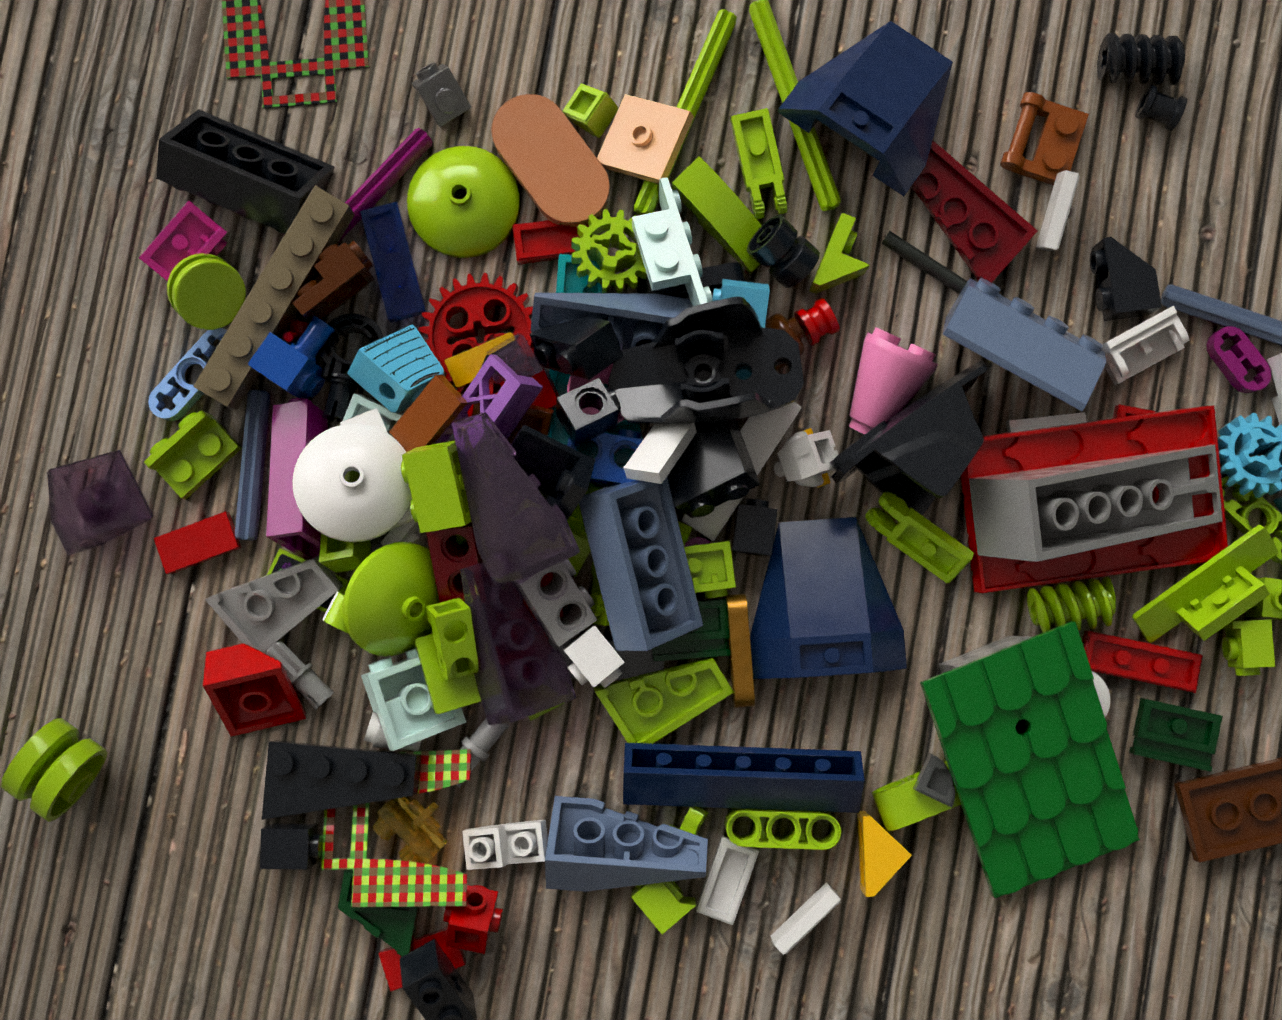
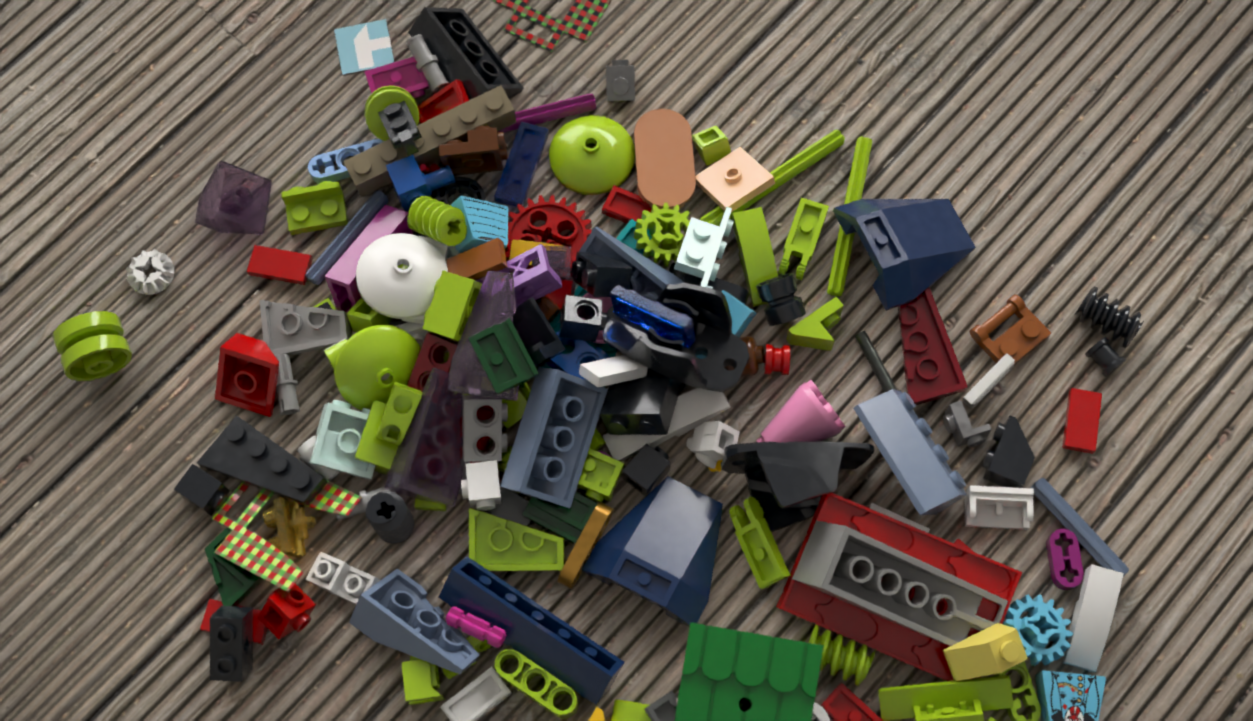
camera: 30 degrees right, 15 degrees down
(70, 647) = (156, 281): none -> white gear
(114, 224) = (364, 46): none -> medium azure sticker
(206, 205) = (427, 63): none -> light grey pin
(233, 307) = (400, 127): none -> black hinge
(257, 244) = (444, 100): none -> red tile
(351, 394) = (437, 221): none -> lime piece
(504, 748) = (390, 517): none -> black piece
(539, 517) = (503, 356): none -> dark green plate
(671, 365) = (653, 315): none -> clear blue plate
(685, 813) = (476, 627): none -> dark pink axle
(1053, 279) = (958, 423): none -> flat silver bracket
(1173, 195) = (1082, 420): none -> red tile
(1228, 515) = (985, 653): none -> light yellow slope

